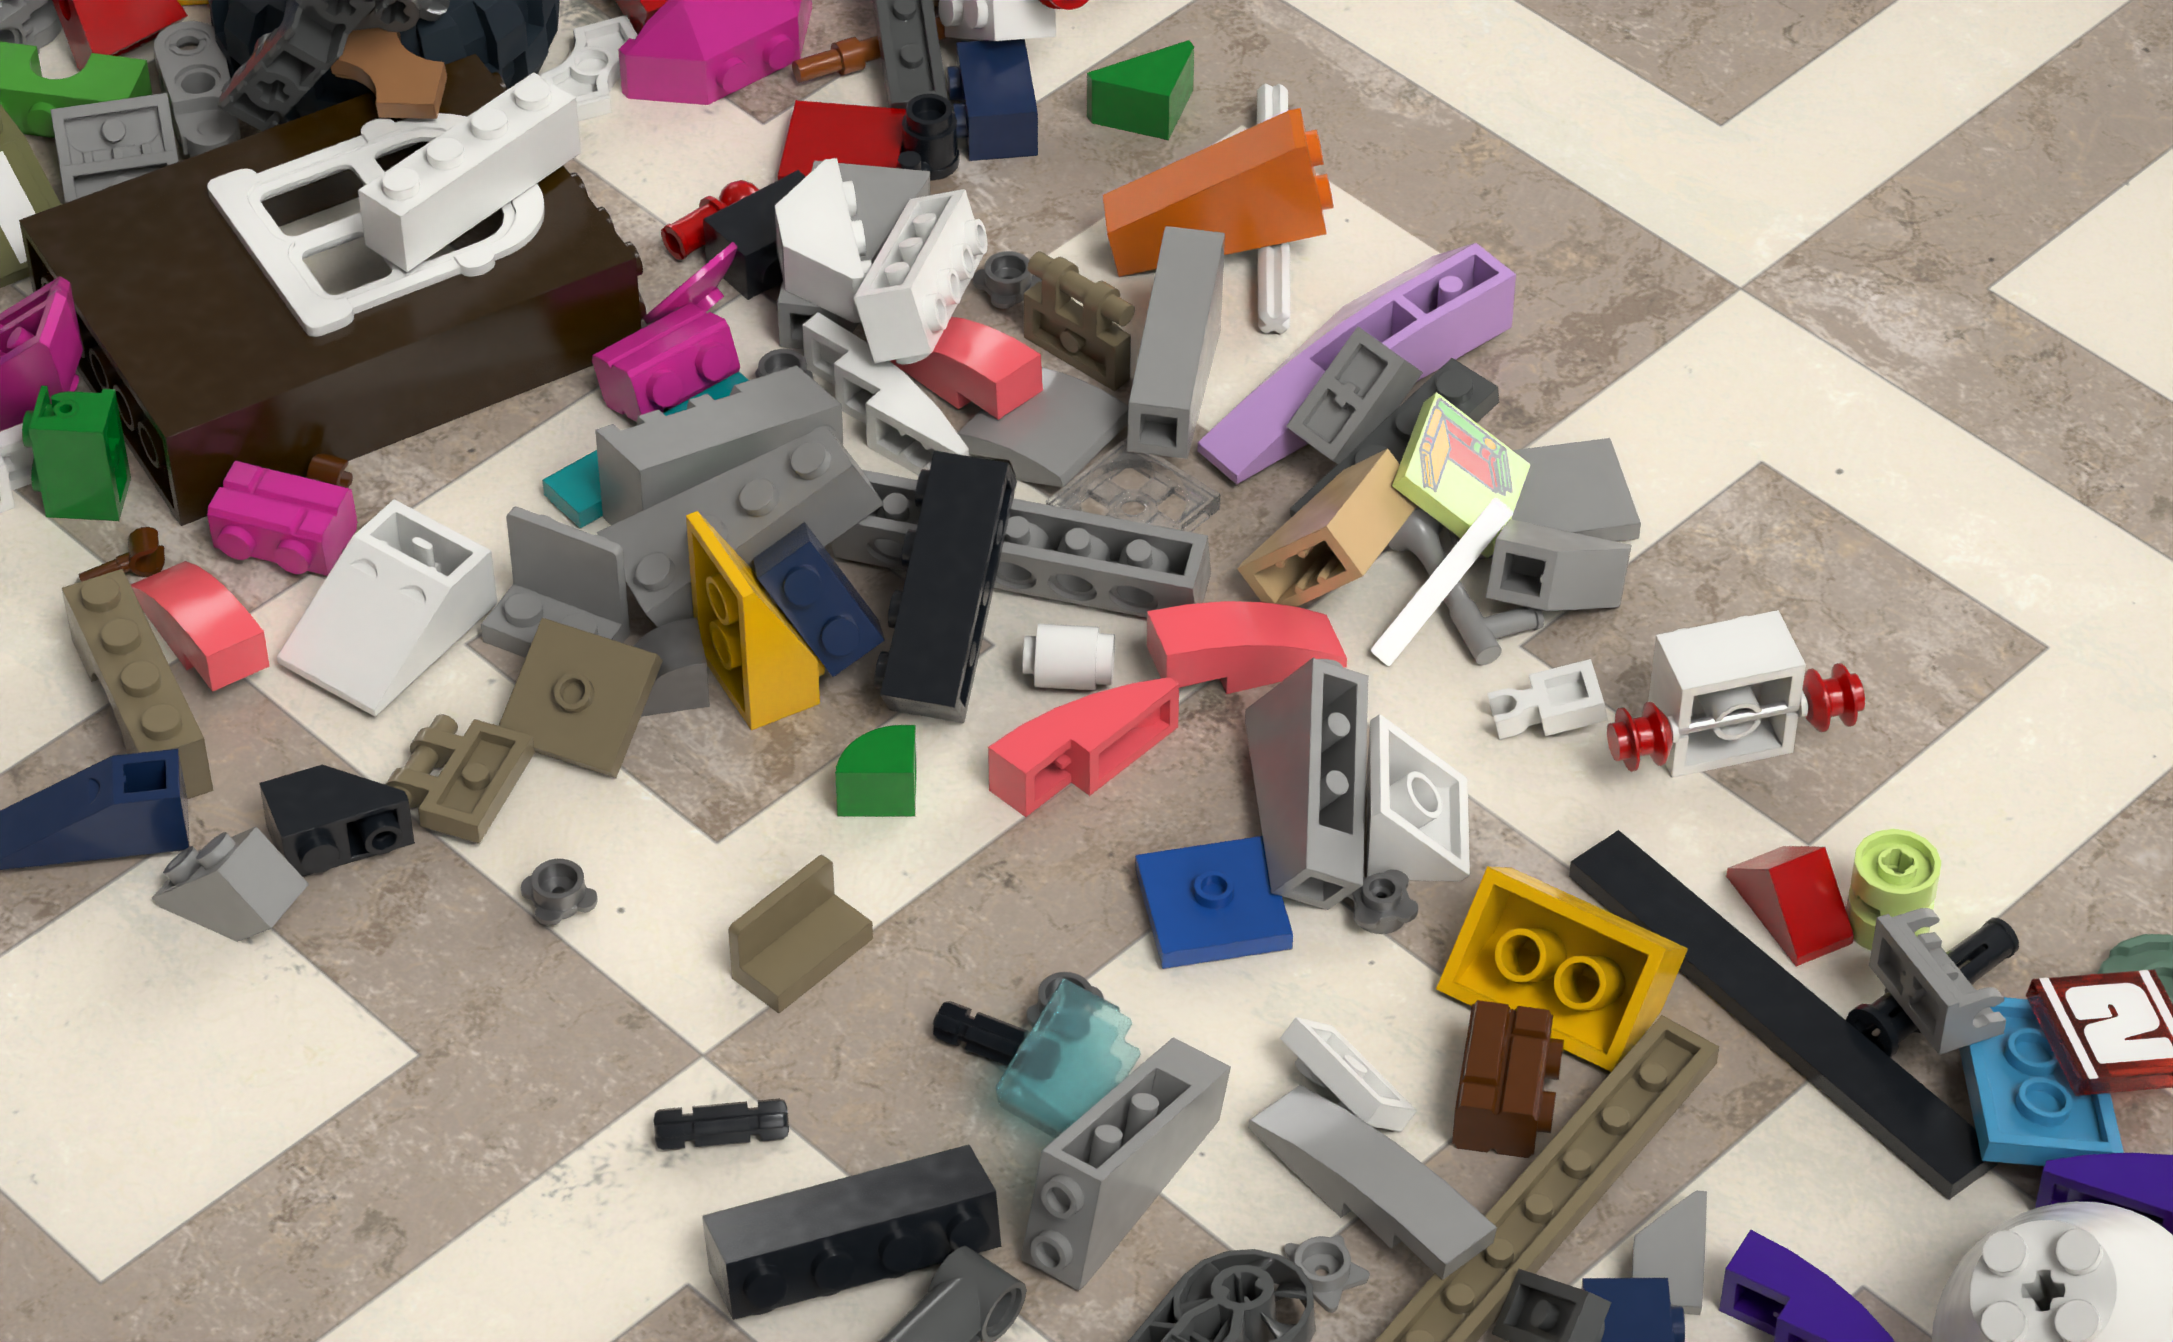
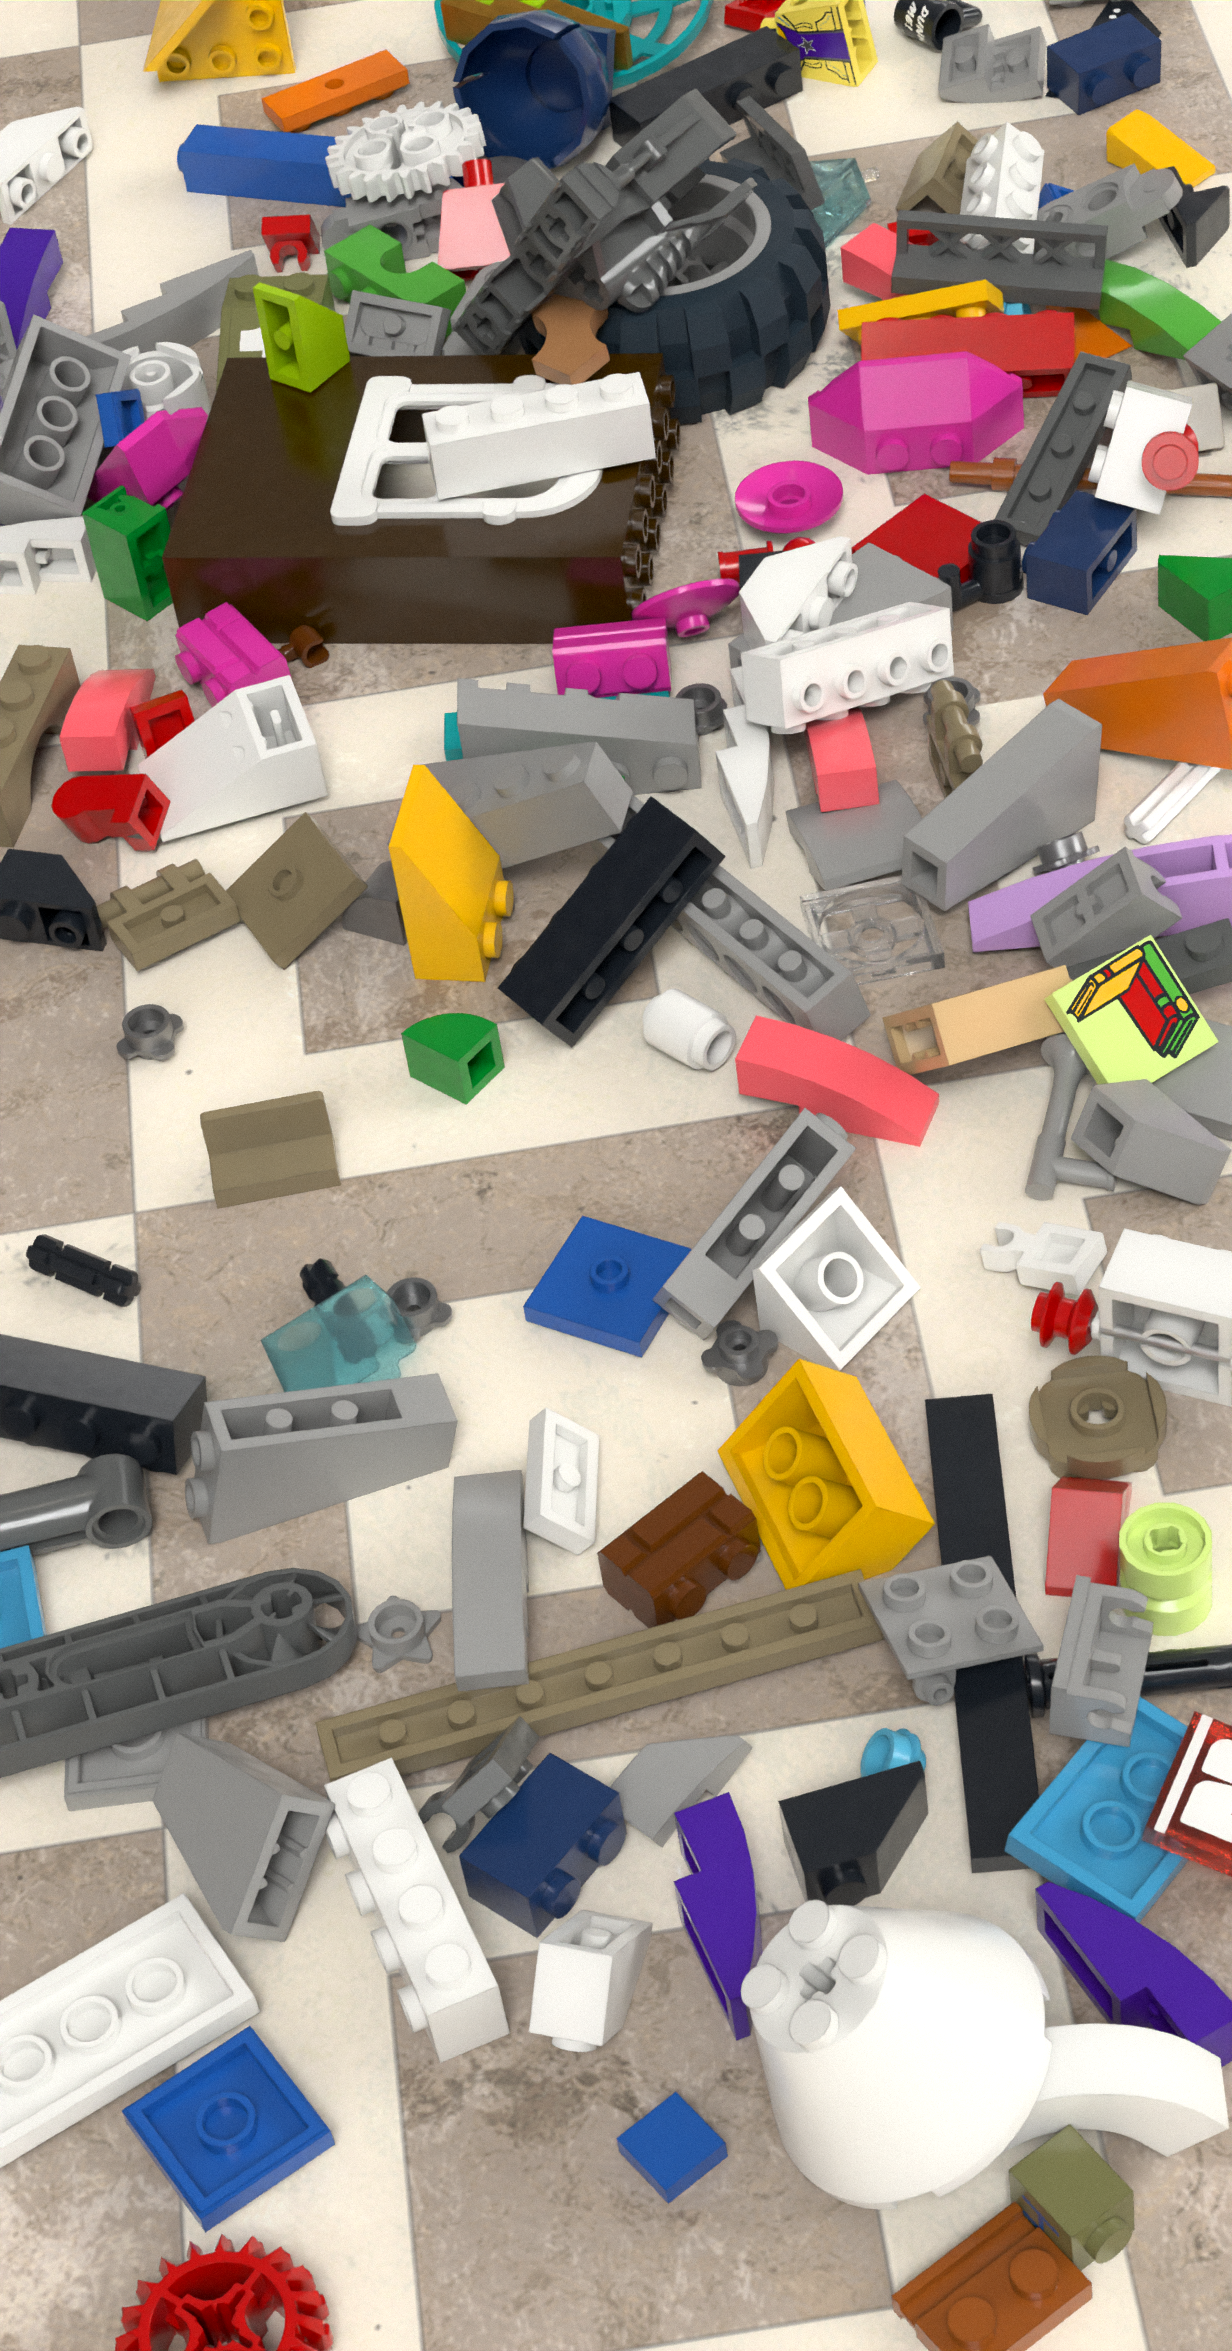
camera: 45 degrees right, 0 degrees up
(117, 169) = (299, 338): none -> lime slope
(143, 557) = (123, 653): reddish brown hand -> none
(275, 602) = (161, 720): none -> red tile
(308, 703) = (112, 807): none -> red leg
(560, 578) = (361, 811): light grey bracket -> none
(593, 65) = (779, 421): white tile -> none
(676, 150) = (789, 496): none -> dark pink dish
(818, 599) = (510, 886): dark blue brick -> none
(1081, 742) = (631, 1104): coral slope -> none
(1242, 368) = (1064, 852): none -> flat silver plate
(1441, 581) = (1041, 1107): white sticker -> none
(1712, 837) = (1098, 1450): none -> dark tan plate
(1773, 1019) = (949, 1622): none -> light grey hinge
(1811, 1141) = (890, 1750): none -> medium azure plate
(1853, 1219) = (853, 1833): none -> black slope

